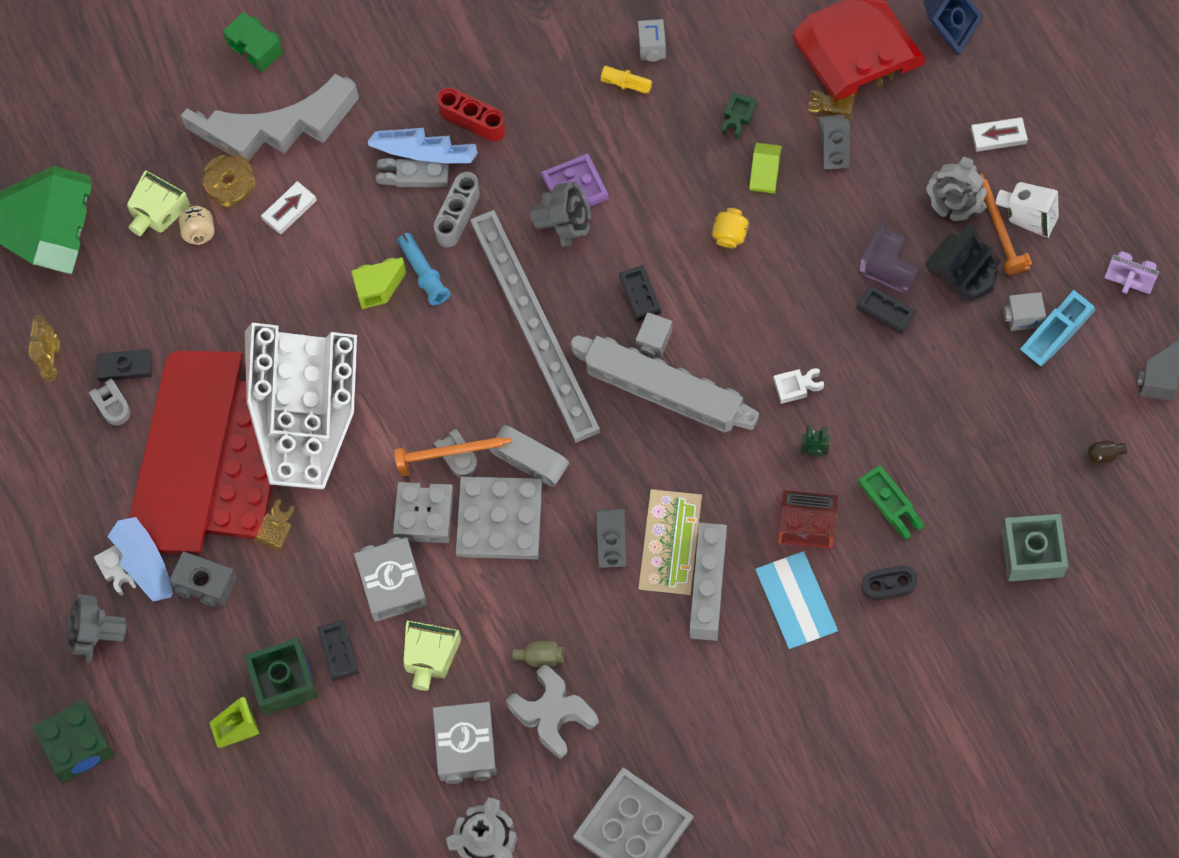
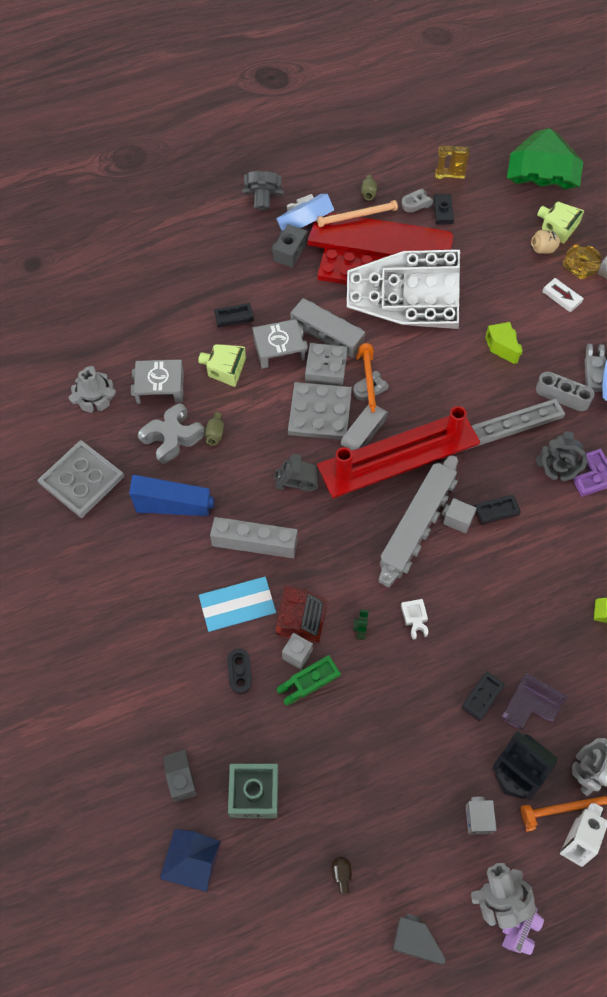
camera: 90 degrees right, 5 degrees down
(73, 741) = (193, 184): dark green brick -> none
(81, 472) = (369, 188): none -> olive plant
(119, 436) = (357, 213): none -> light nougat bar
(234, 724) = (193, 264): lime slope -> none
(274, 528) = (321, 281): clear yellow plate -> none
(281, 676) = (217, 281): dark green brick -> none
(359, 514) = (328, 327): none -> light grey brick
(427, 278) = (508, 372): dark azure pin -> none
(573, 408) = (397, 453): none -> red piece
(659, 694) = (169, 497): none -> blue slope
(670, 542) = (311, 521): sticker -> none
(730, 228) = (555, 577): yellow head -> none
(858, 515) = (297, 651): none -> light grey brick
(1025, 636) = (179, 776): none -> dark grey slope
(1058, 328) = (463, 845): medium azure slope -> none
(1107, 283) = (505, 894): none -> light grey piece
(1115, 614) = (190, 859): none -> dark blue slope

